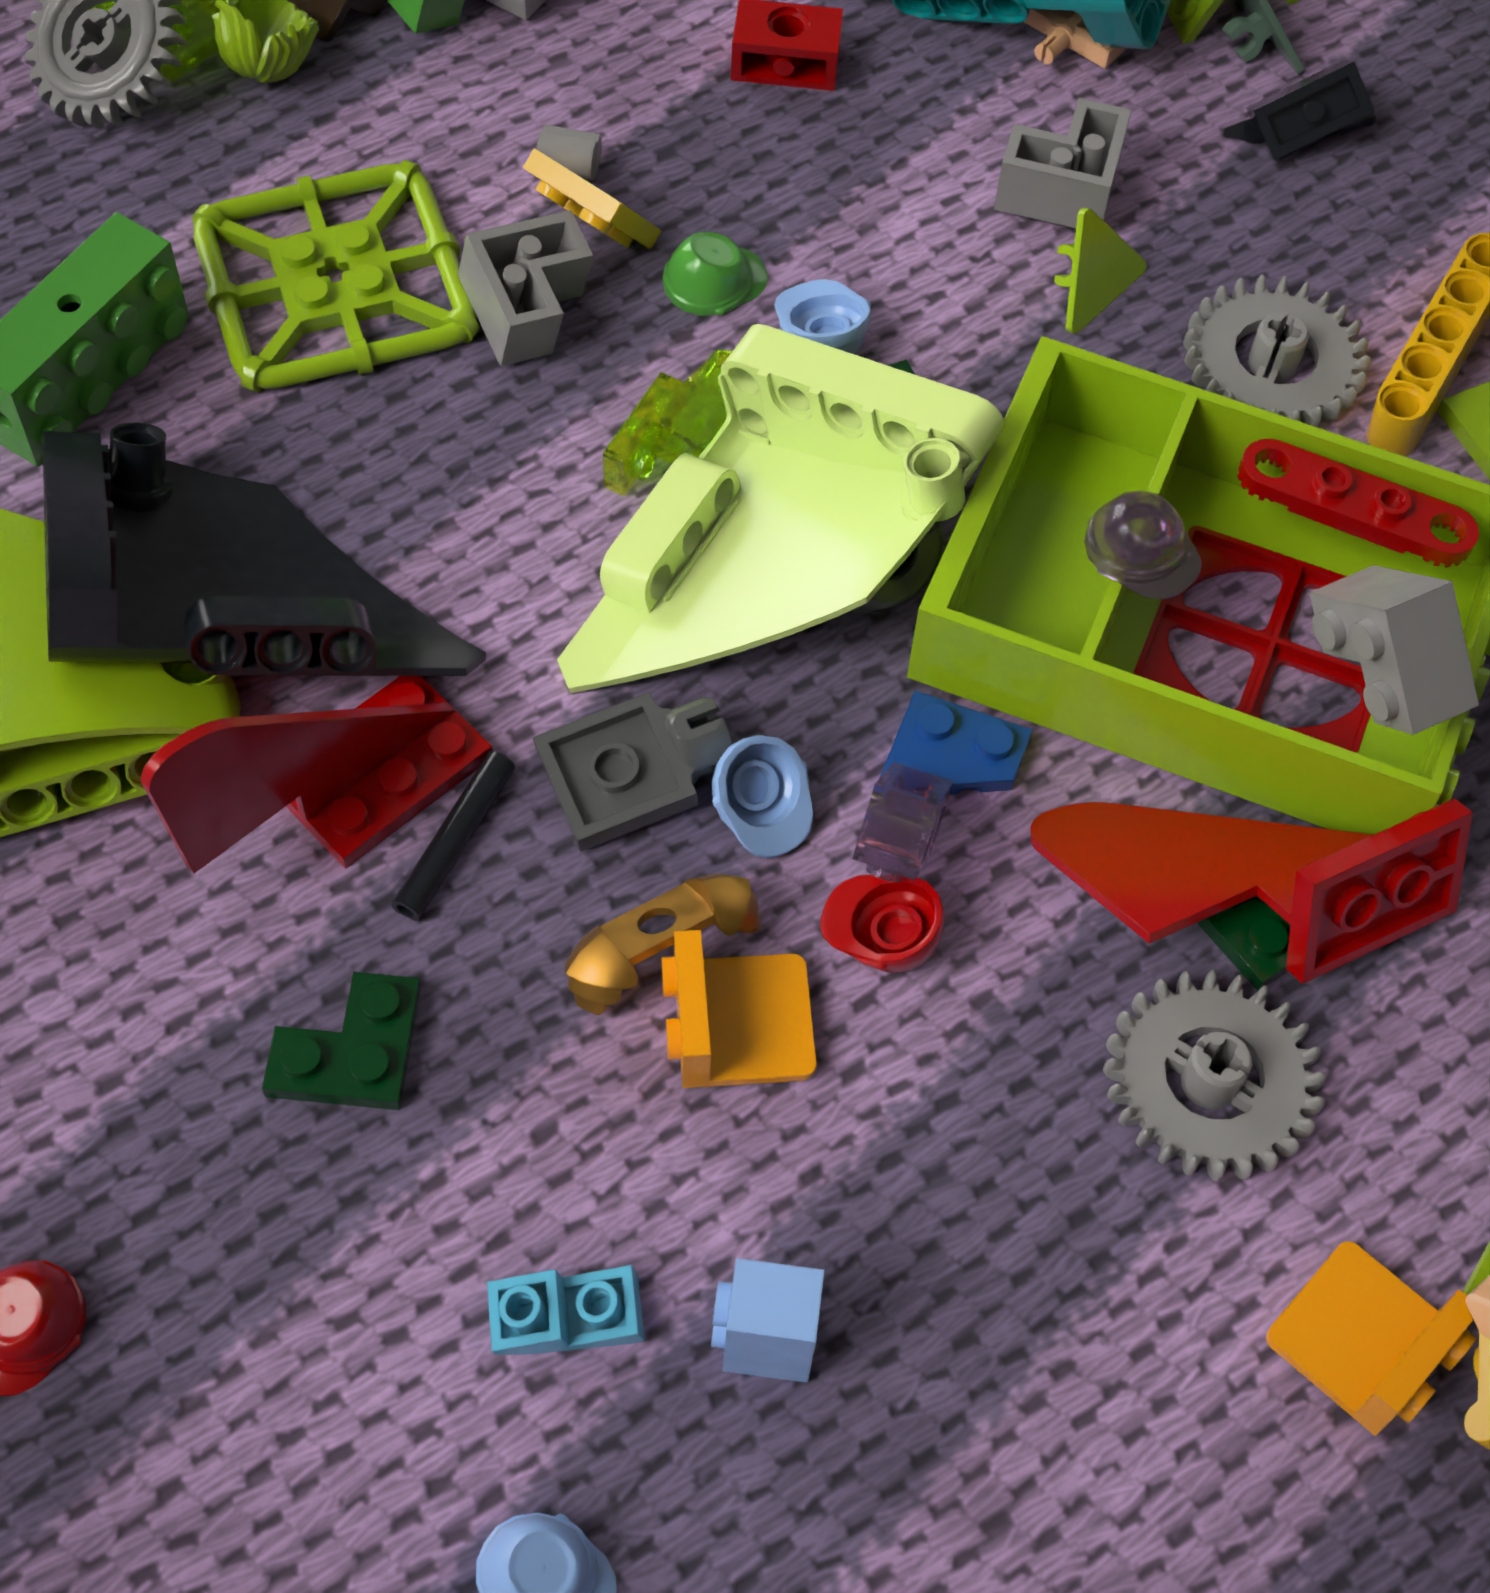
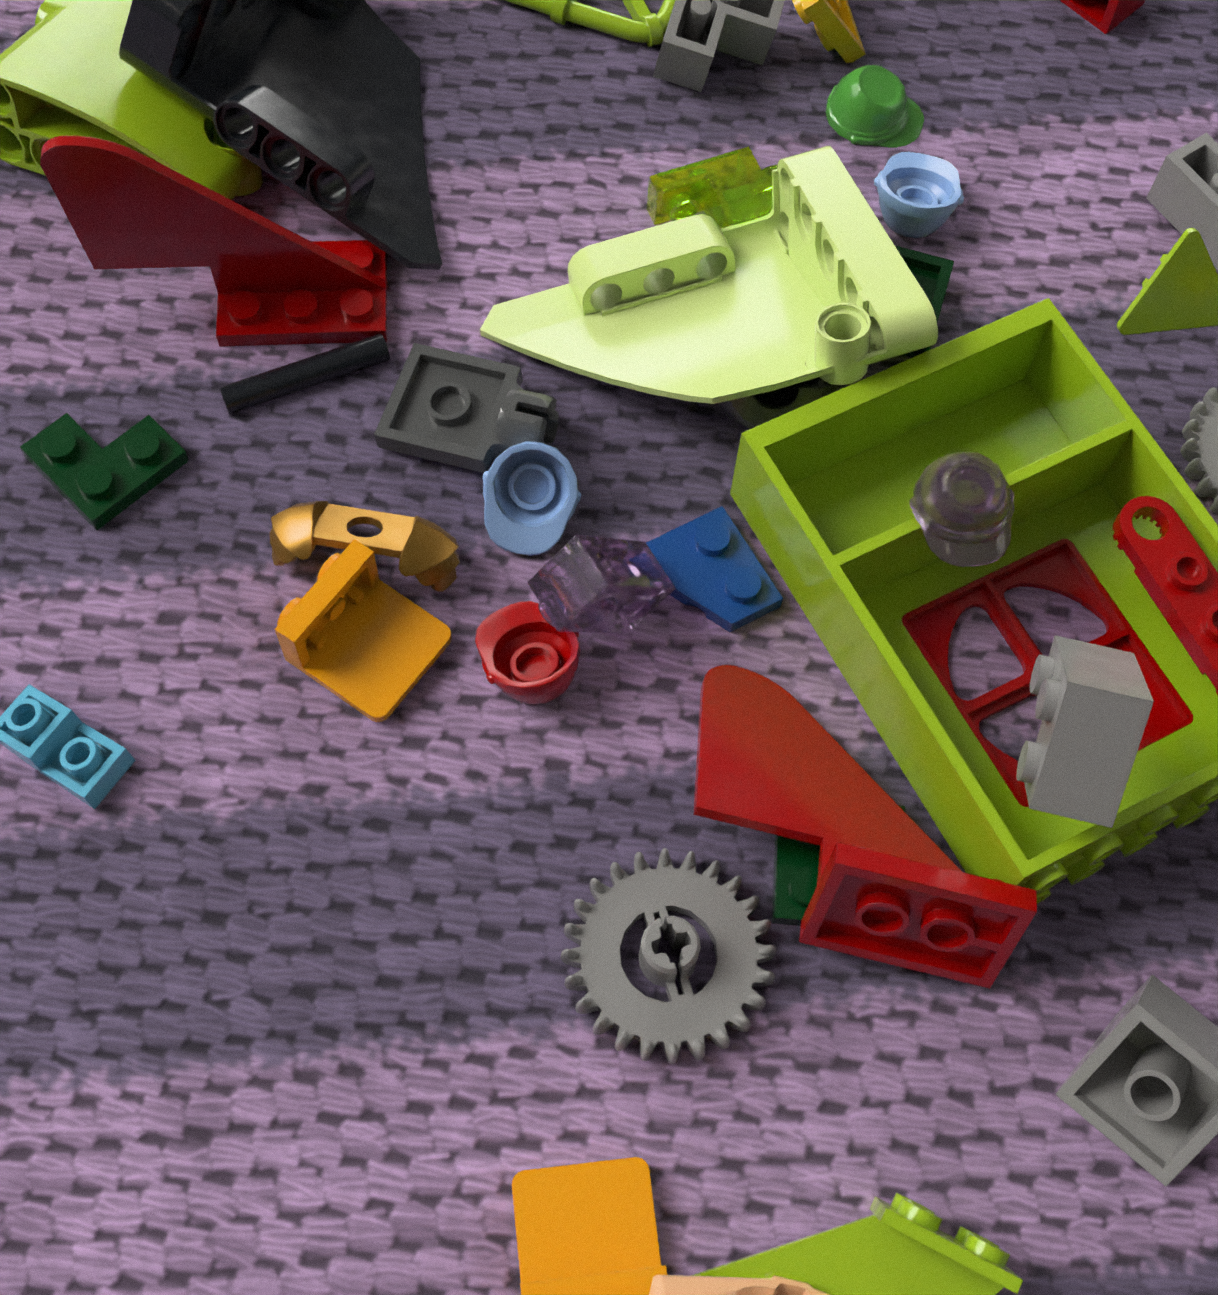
camera: 40 degrees right, 5 degrees up
(768, 1319) = (159, 857): light blue brick -> none

